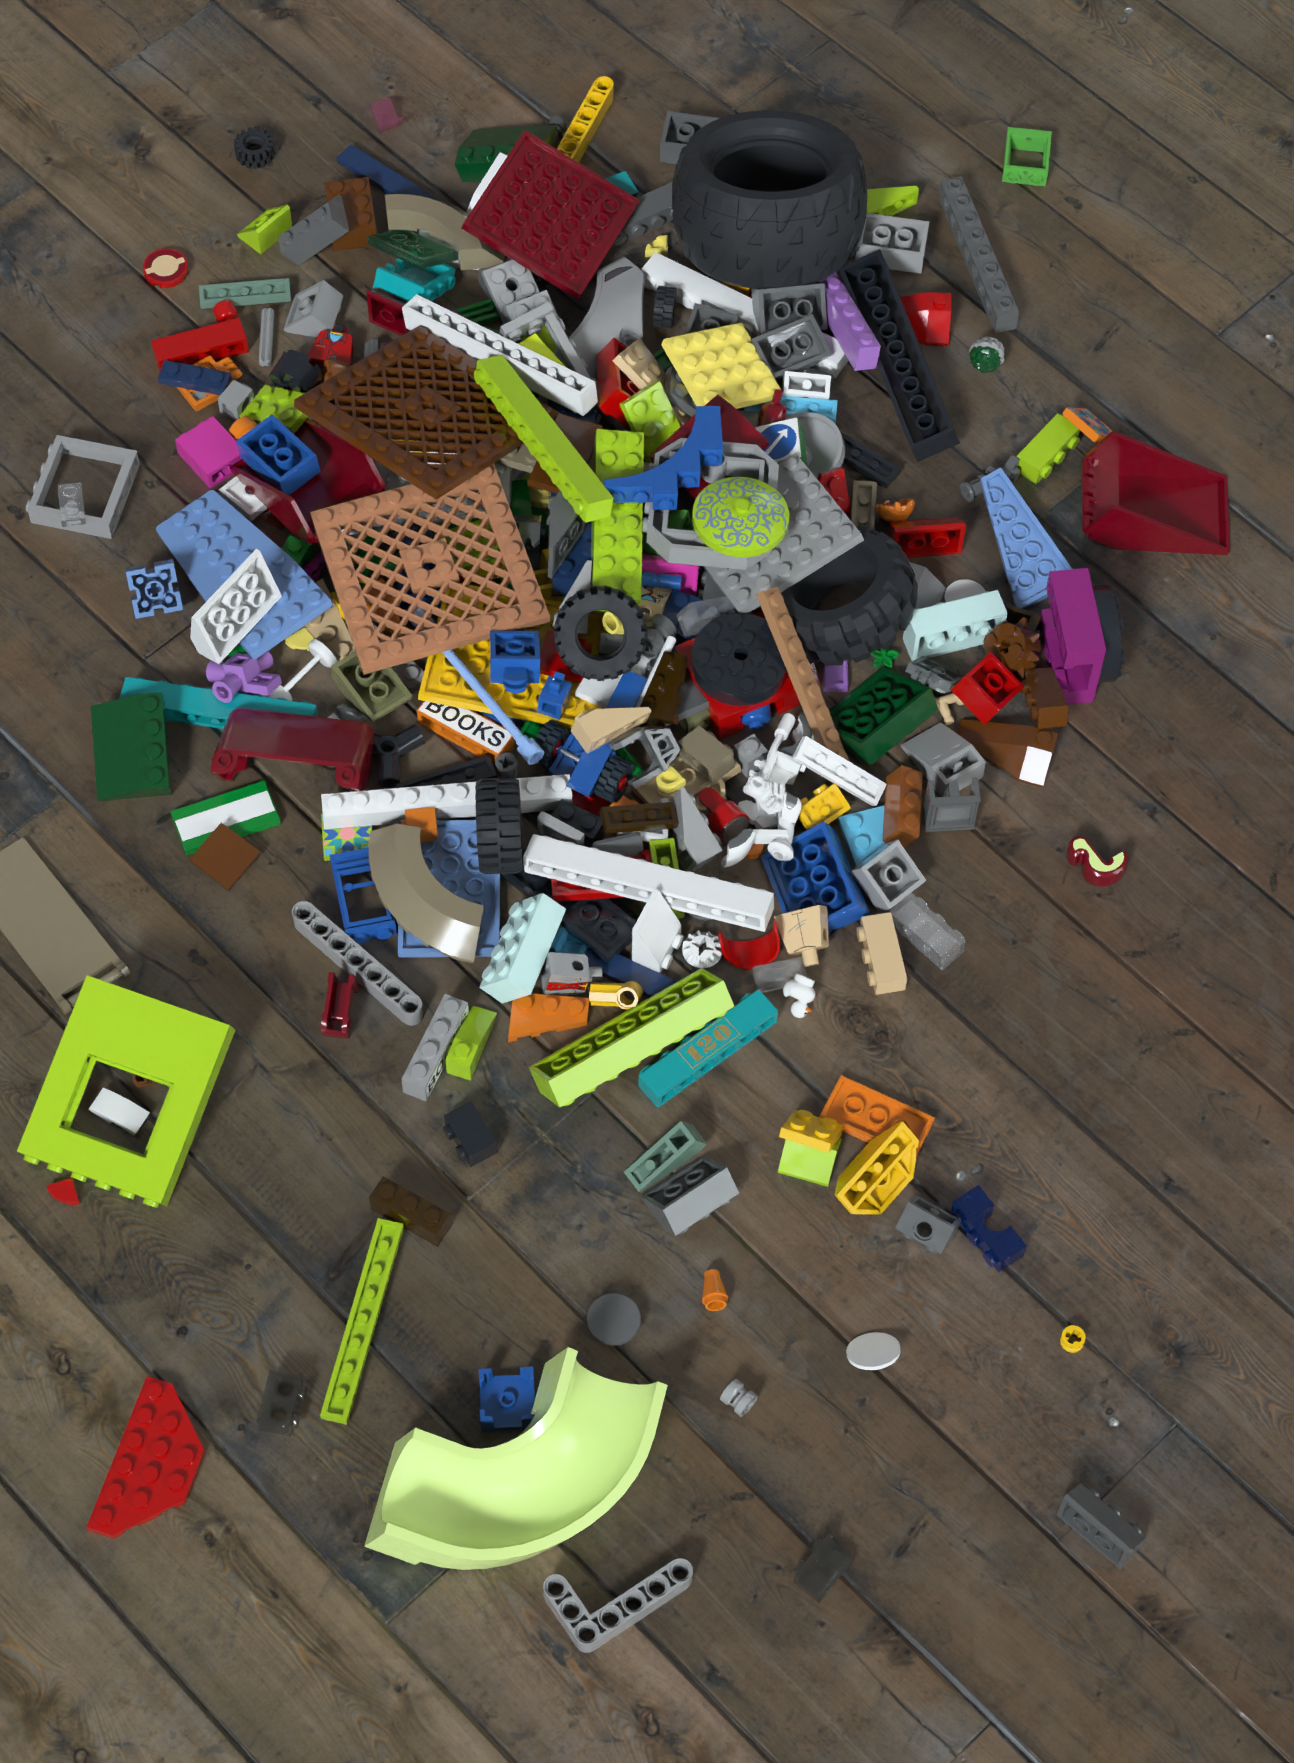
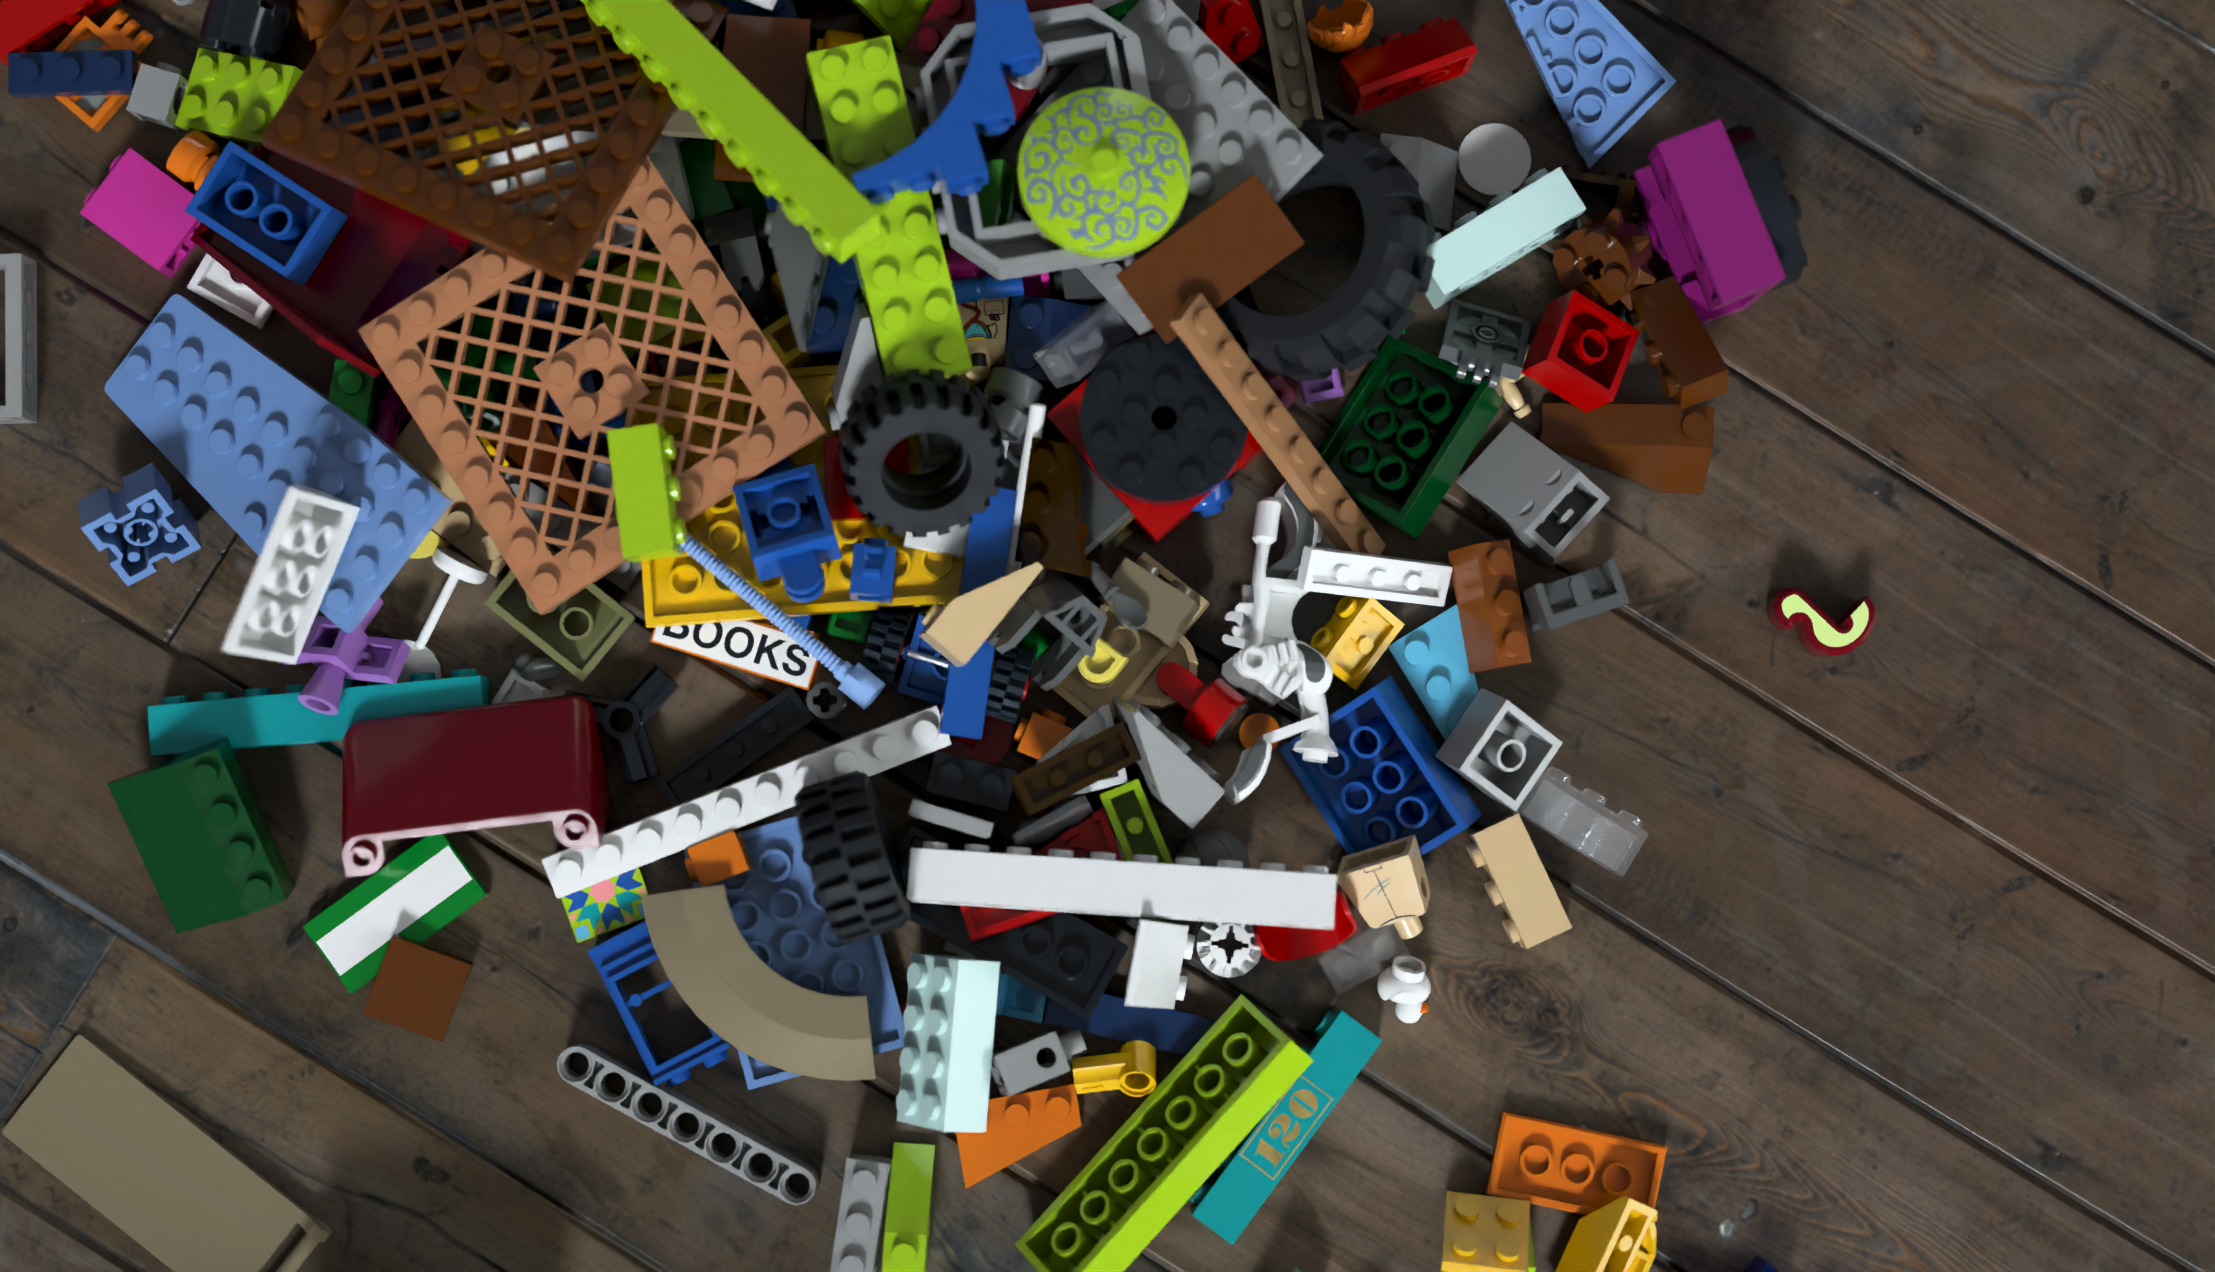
camera: 15 degrees left, 25 degrees up
(336, 1014) = (680, 1210): dark red piece -> none
(442, 617) = (646, 492): none -> lime brick
(692, 747) = (1127, 609): none -> dark grey piece
(748, 752) = (1218, 572): light grey brick -> none
(793, 571) = (1211, 254): none -> reddish brown tile

